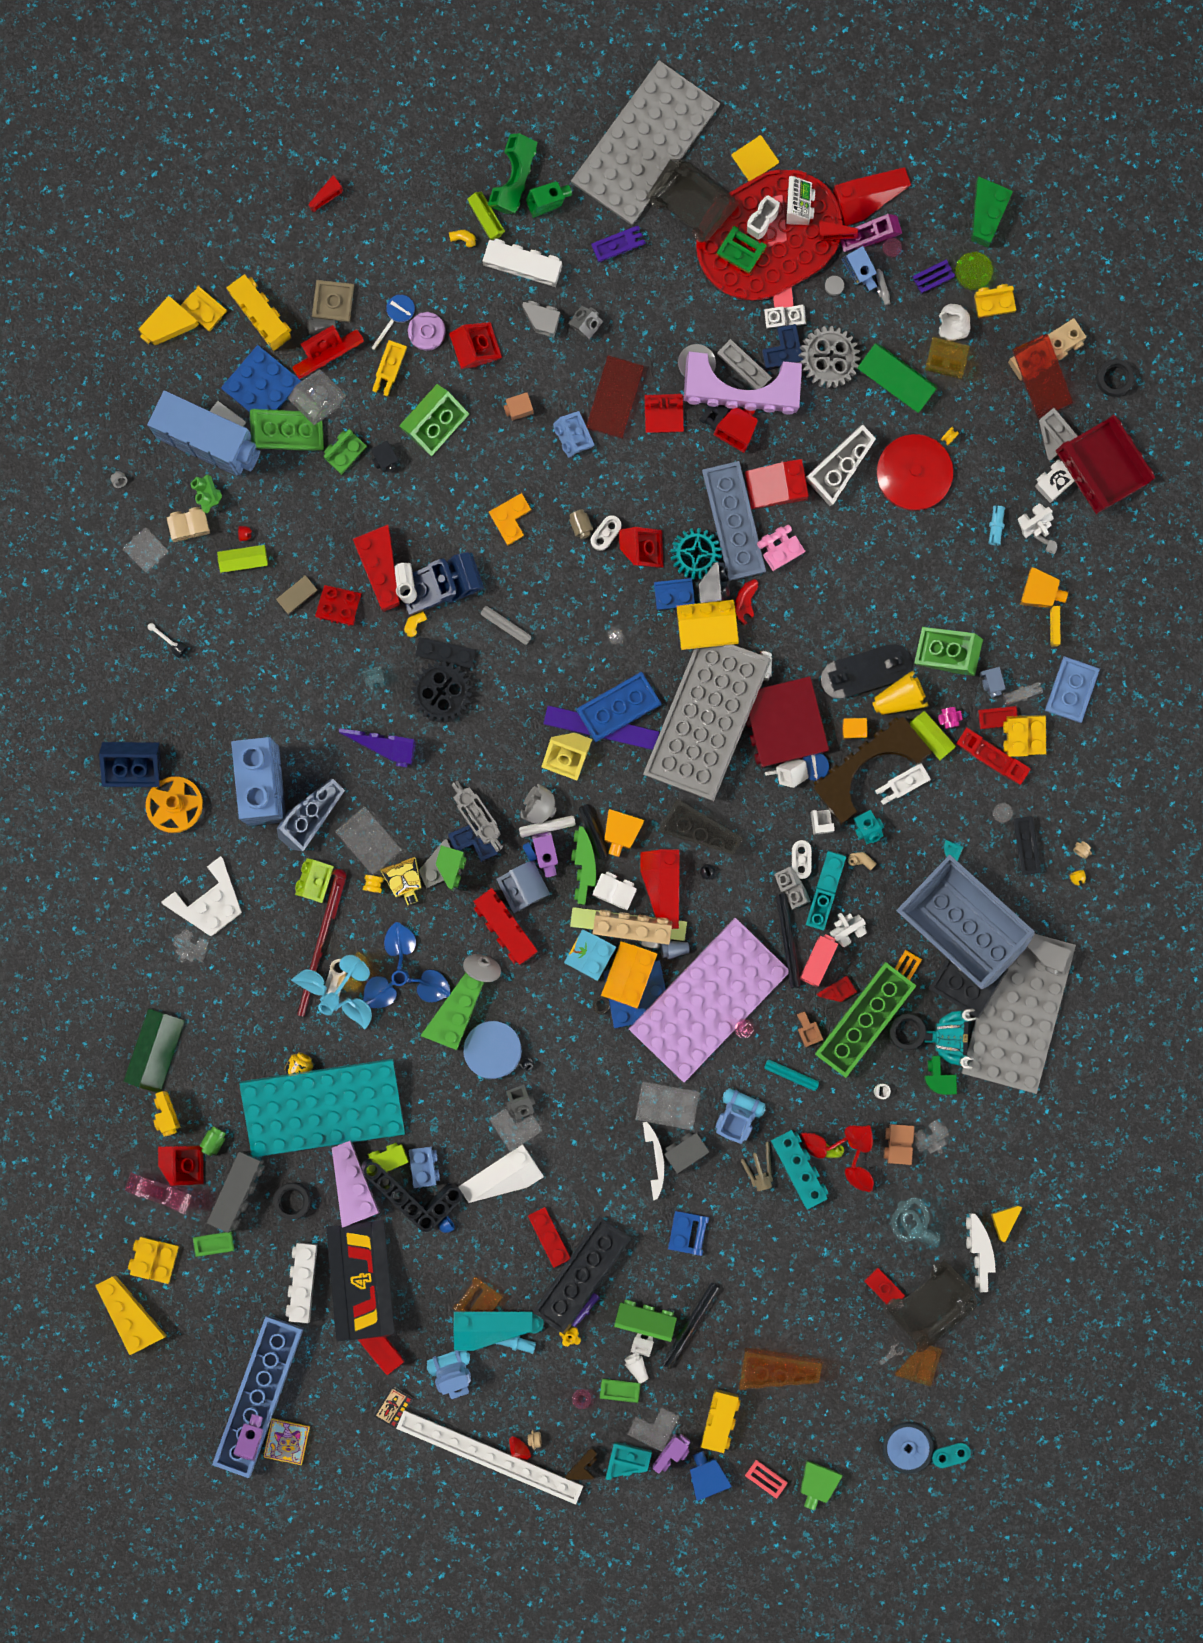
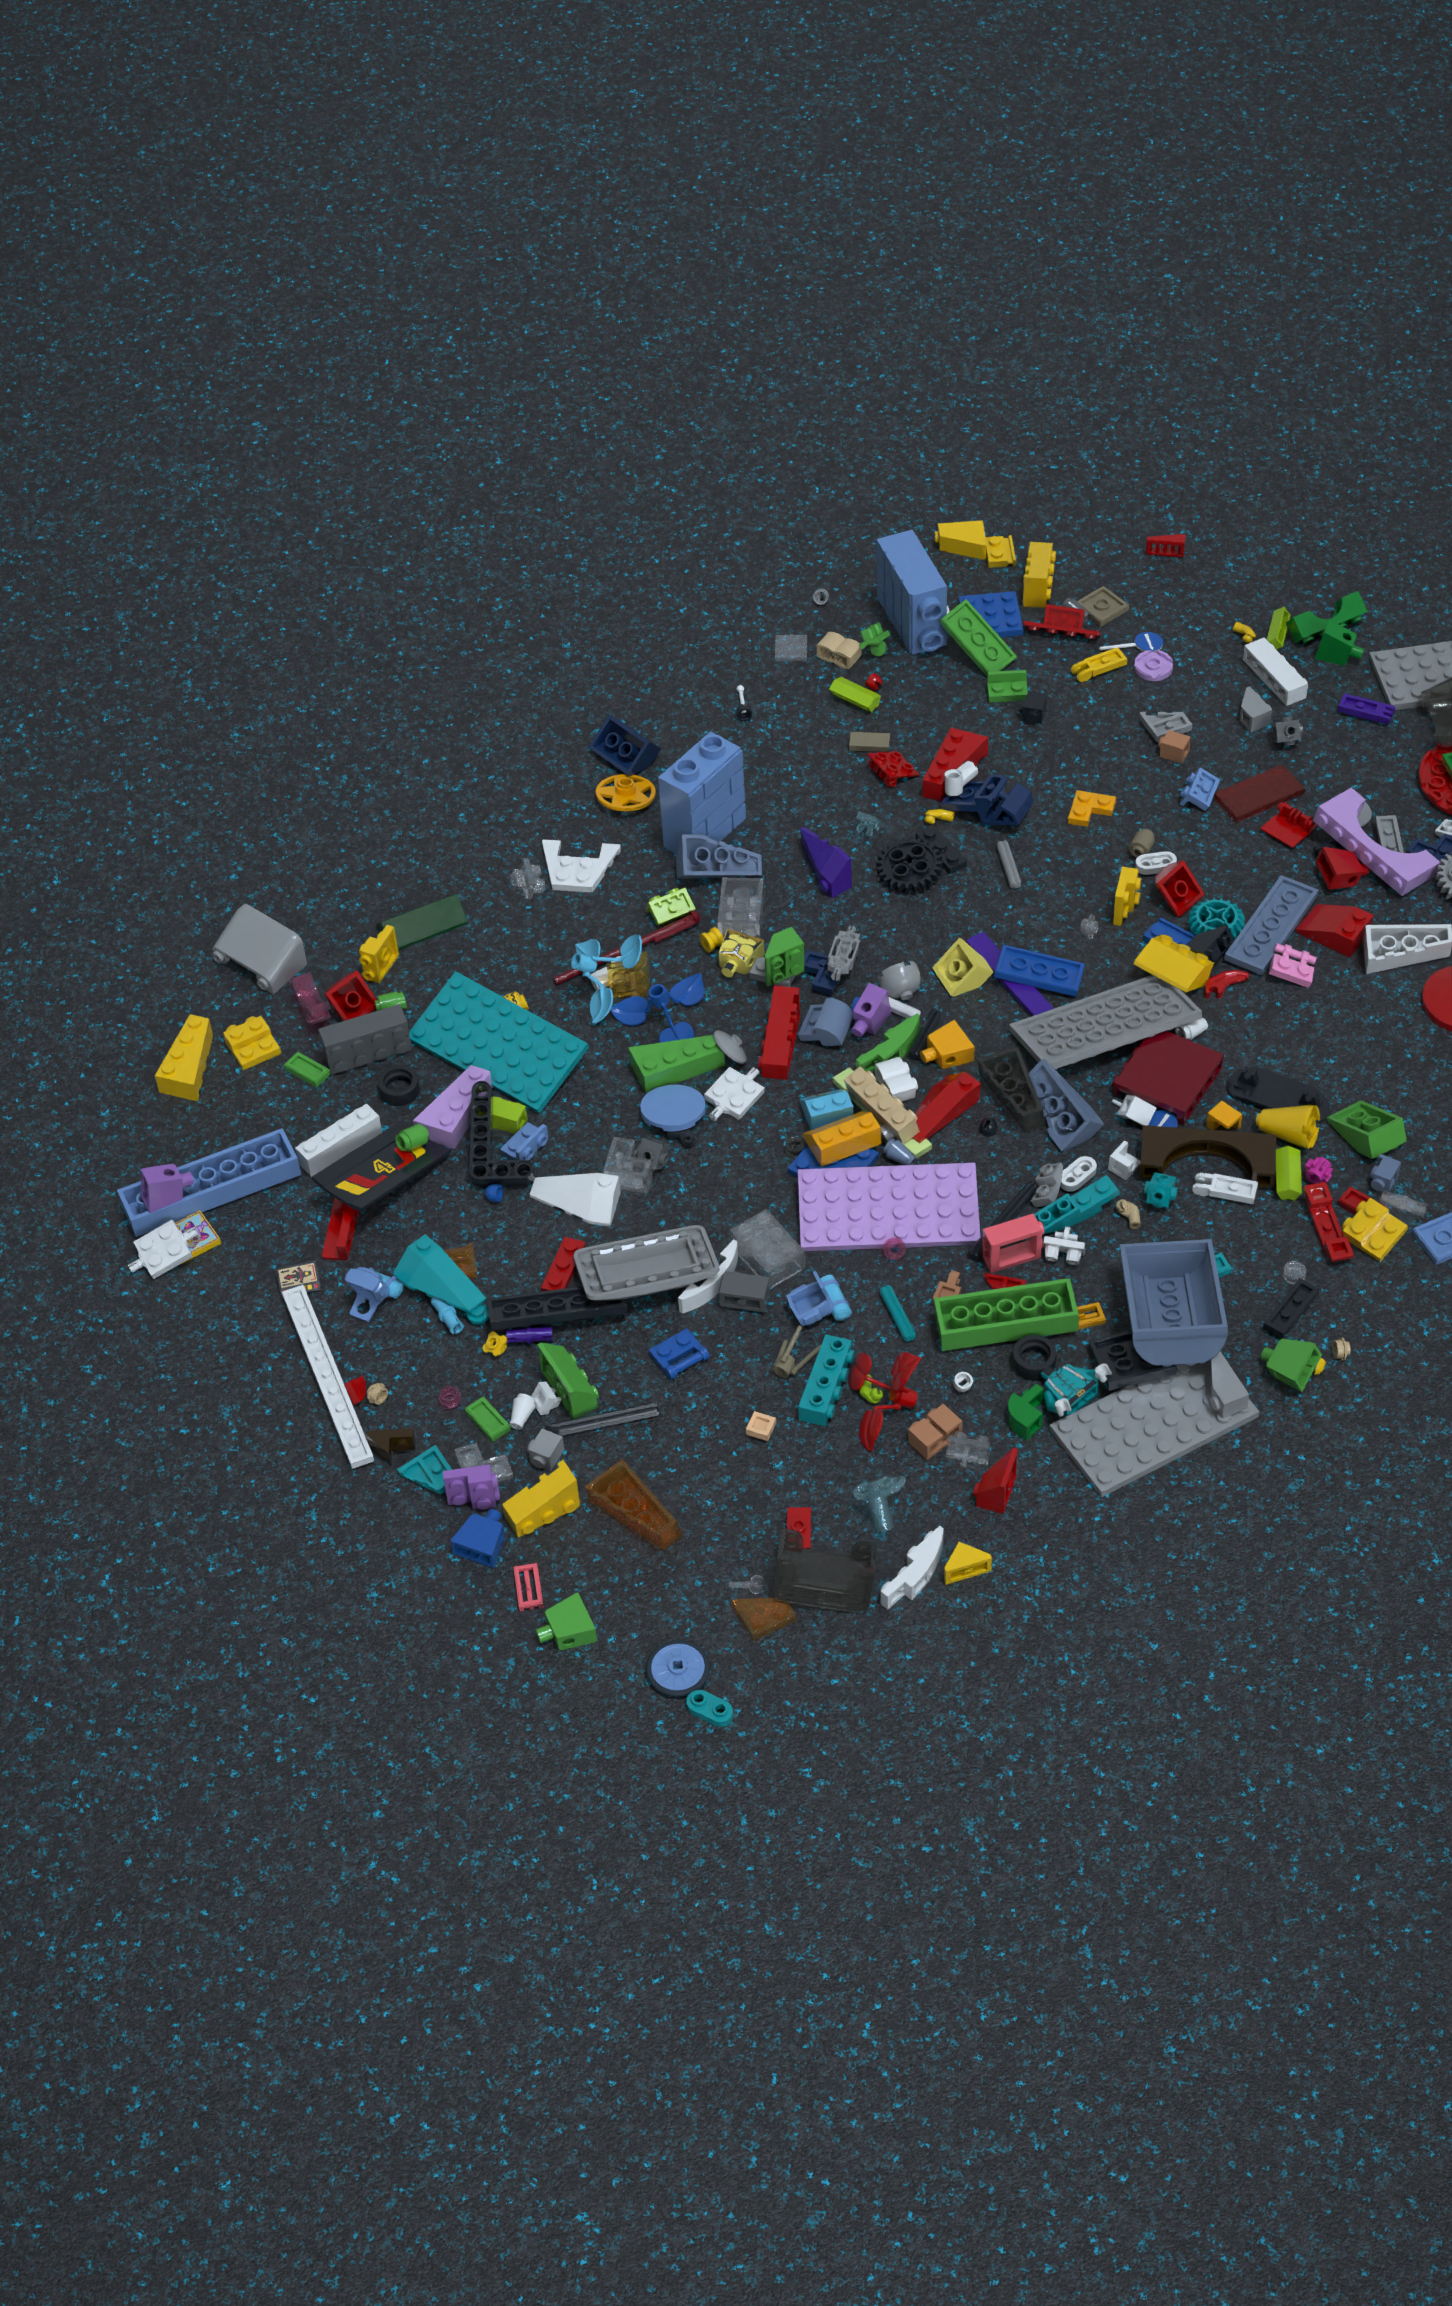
camera: 45 degrees right, 35 degrees down
(75, 1186) = (261, 947): none -> light grey windscreen
(284, 1471) = (163, 1249): none -> white plate
(316, 397) = (1023, 637): clear brick -> none
(354, 1239) = (412, 1137): none -> bright green brick
(434, 419) = (1098, 712): bright green slope -> none
(475, 345) = (1182, 691): red slope -> none
(491, 388) = (1165, 721): none -> light grey wing
(518, 998) = (734, 1093): none -> white plate
(608, 1194) = (646, 1264): none -> light grey wedge
(618, 584) = (1126, 894): none -> yellow plate
(681, 1381) = (545, 1449): none -> light grey brick
(752, 818) = (1066, 1112): none -> sand blue wedge
(792, 1239) = (761, 1426): none -> light nougat plate
(975, 1150) = (997, 1483): none -> red slope
(1067, 893) = (1292, 1361): none -> bright green torso

